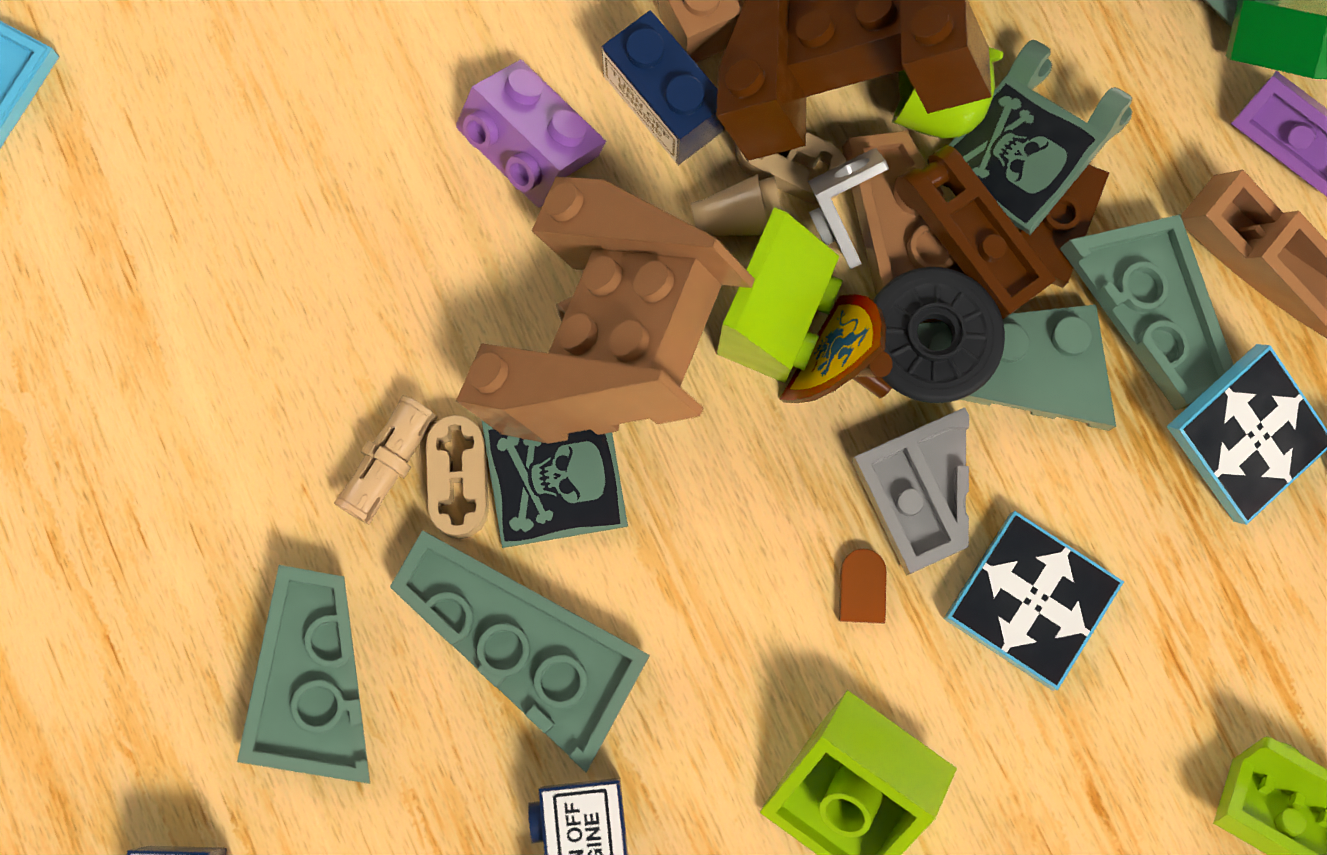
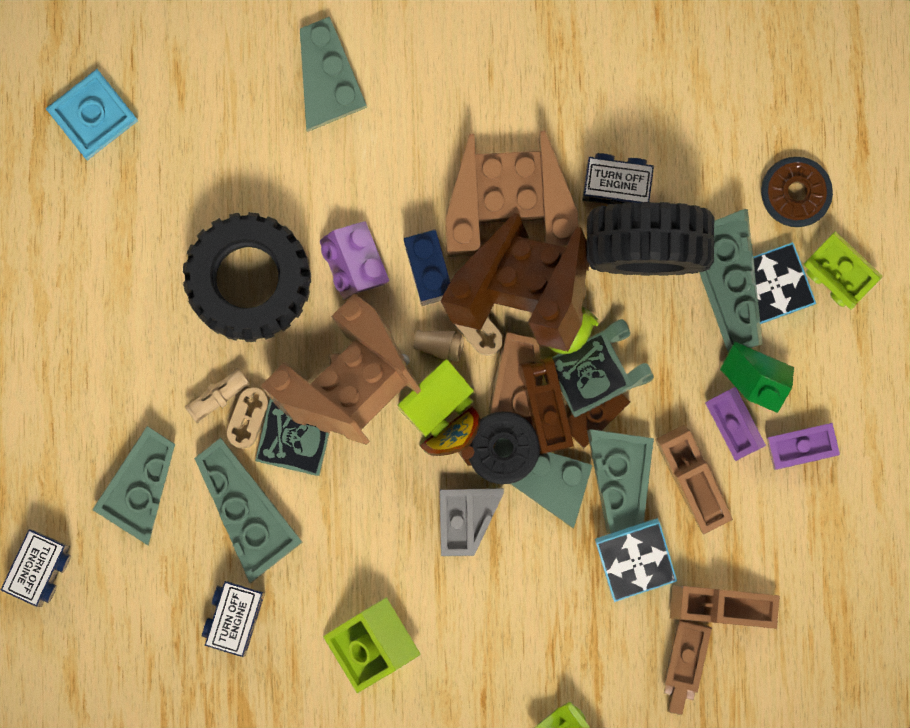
camera: 25 degrees right, 5 degrees up
(304, 166) = (215, 246): none -> black tyre
(835, 182) = (478, 366): light grey bracket -> none
(863, 588) = (418, 553): dark orange piece -> none
(1034, 600) = (496, 593): black tile -> none

